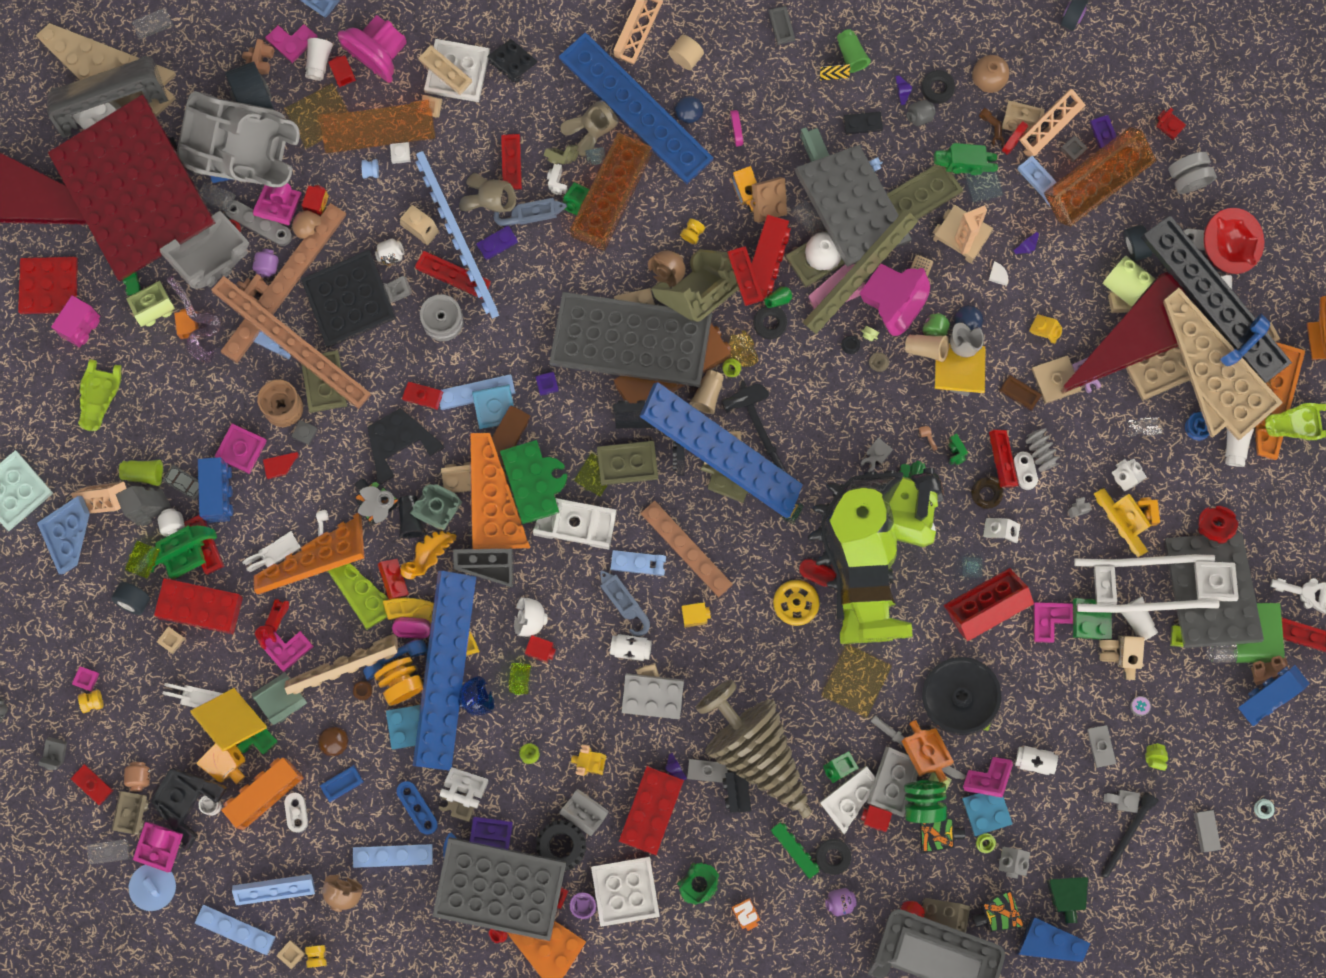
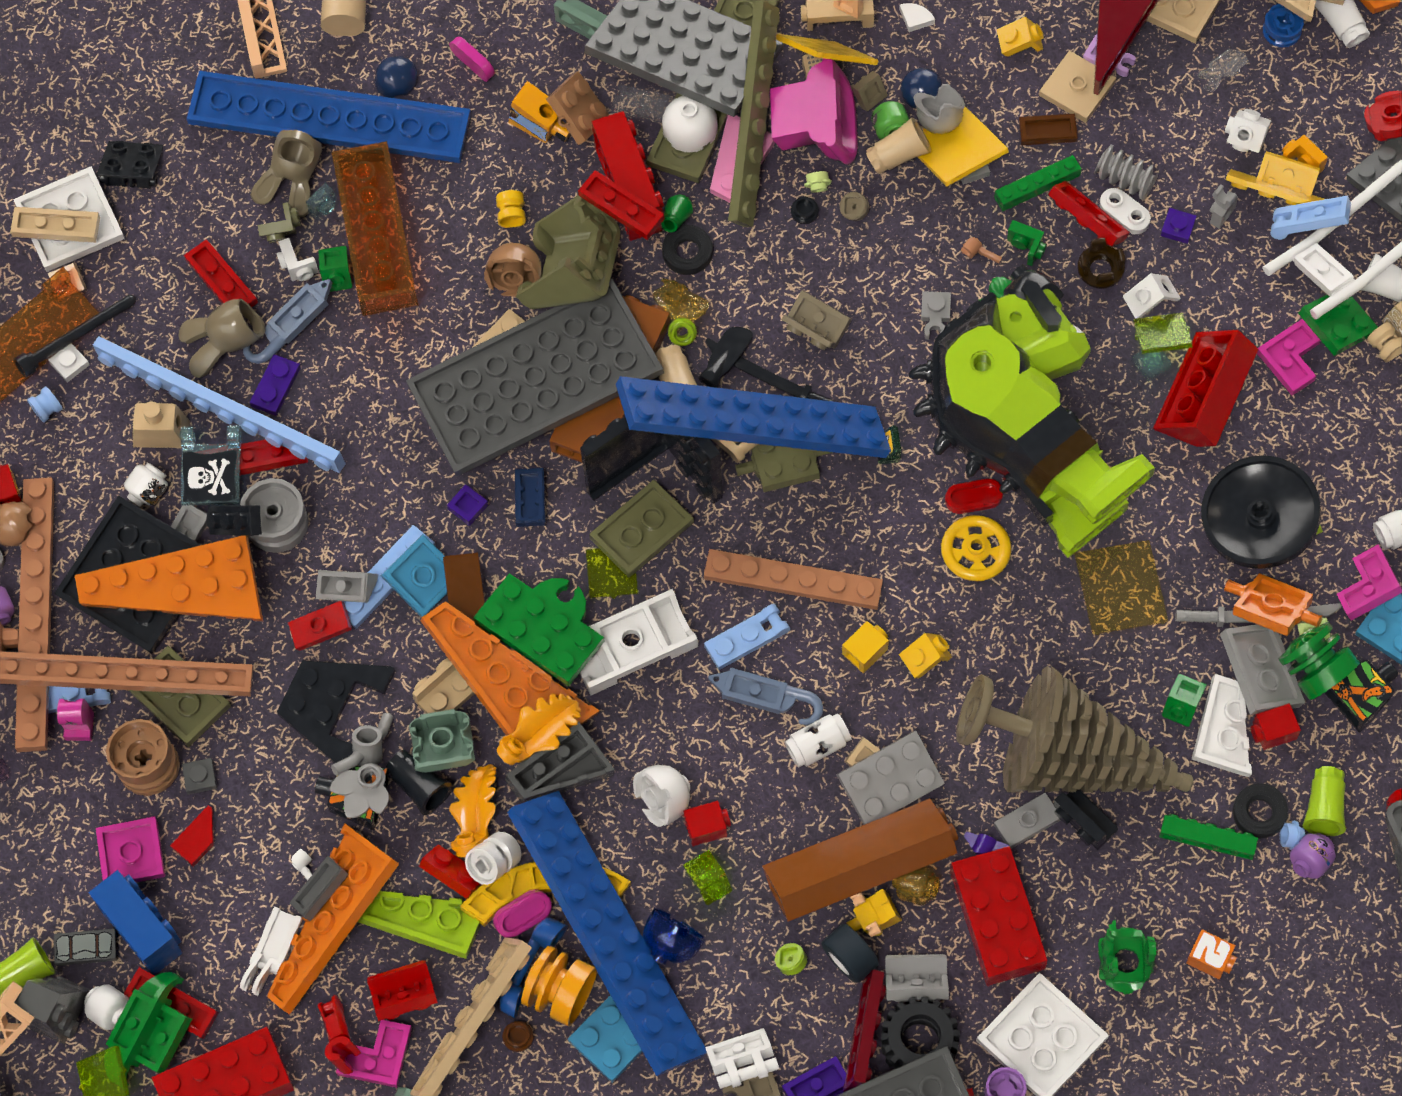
camera: 35 degrees left, 10 degrees down
(262, 357) = (76, 719): none -> dark pink leg
(318, 538) = (319, 888): none -> dark grey tile
(321, 624) = (402, 990): none -> red bracket
(372, 325) = (191, 581): none -> orange wing
(377, 139) = (29, 362): none -> black piece
(397, 474) = (365, 745): none -> light grey piece
(416, 307) = (234, 520): none -> black plate
(416, 588) = (493, 858): none -> white wheel
(427, 268) = (210, 470): none -> flag
(451, 383) = (345, 585): none -> light grey slope
(488, 537) = (539, 728): none -> light orange plant
(529, 827) = (866, 1023): none -> dark red plate
(559, 774) = (850, 953): none -> black wheel
(582, 403) = (530, 497): none -> dark blue plate
(602, 729) = (860, 859): none -> dark orange brick
(622, 762) = (917, 886): none -> clear yellow head
(723, 641) = (925, 654): none -> yellow bracket
(807, 414) = (817, 320): none -> dark tan bracket
(839, 882) = (1291, 834): none -> light blue plate
(871, 879) = (1326, 803): none -> lime plant
(928, 262) = (826, 49): none -> yellow piece
(938, 300) = (869, 91): none -> dark tan tile
(989, 420) = (1037, 183): none -> green piece
(990, 556) = (1162, 333): none -> clear neon green piece
(1048, 500) = (1178, 225): none -> dark purple plate
(1122, 549) = (1310, 216): none -> light blue plate

